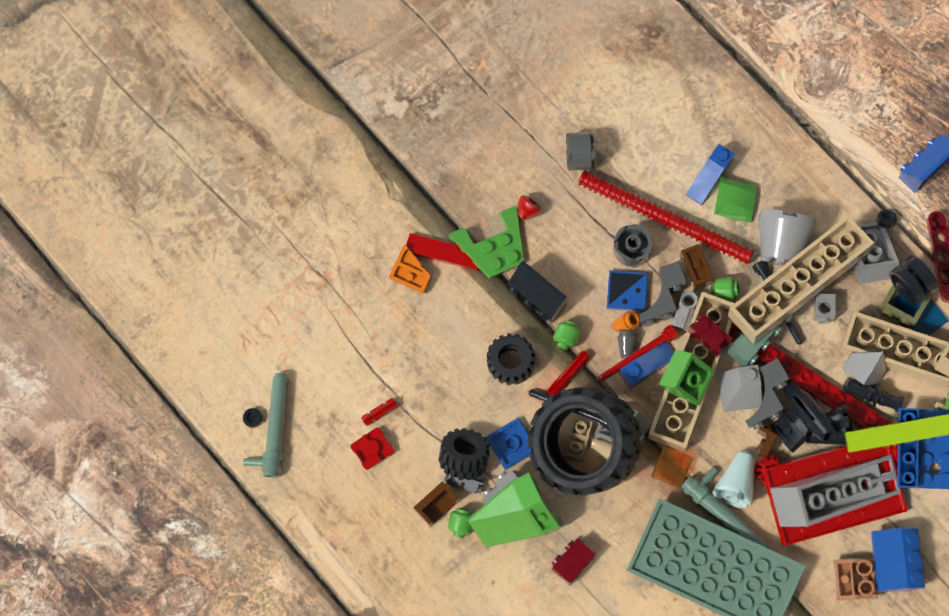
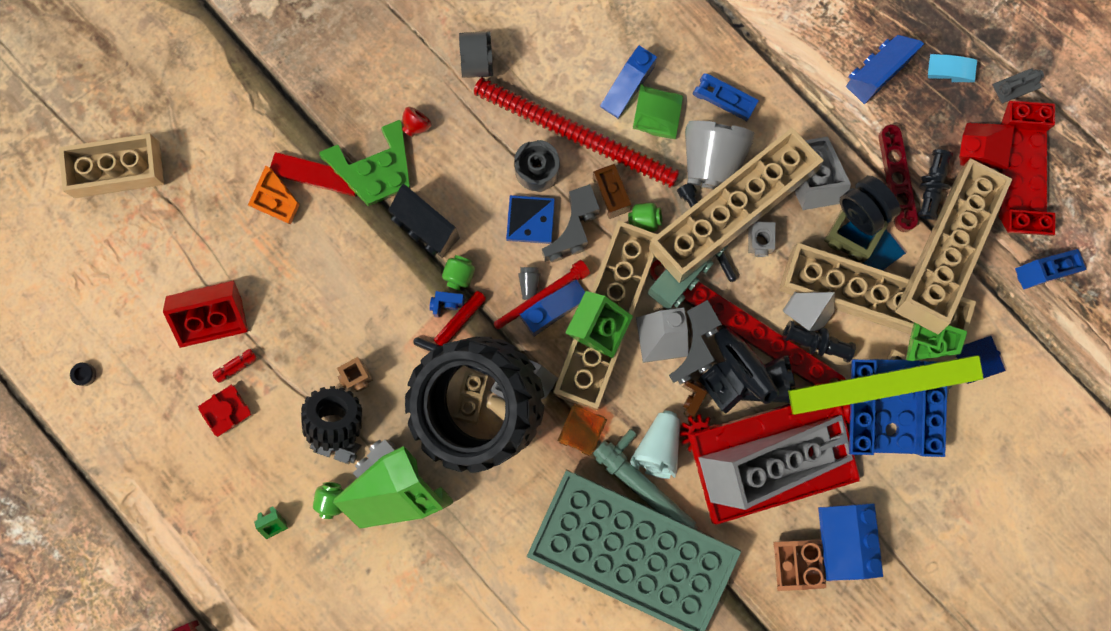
camera: 10 degrees left, 5 degrees up
(272, 454) = (104, 420): sand green cylinder -> none
(274, 244) = (111, 166): none -> tan brick
(355, 368) = (205, 314): none -> red slope
(413, 541) = (270, 524): none -> green tile
(436, 504) = (299, 478): reddish brown panel -> none
(481, 419) = (354, 375): none -> medium nougat brick
(510, 343) = (378, 288): black tyre -> none
(510, 443) = (387, 403): blue tile -> none
(557, 357) = (449, 300): none -> blue bracket
(573, 561) = (462, 546): dark red brick -> none
(627, 321) = (530, 256): orange cone -> none
(684, 313) = (598, 245): light grey piece -> none
(709, 335) = (626, 272): dark red brick -> none
(794, 187) = (725, 97): none -> blue plate
(886, 219) = (833, 134): black tile -> none

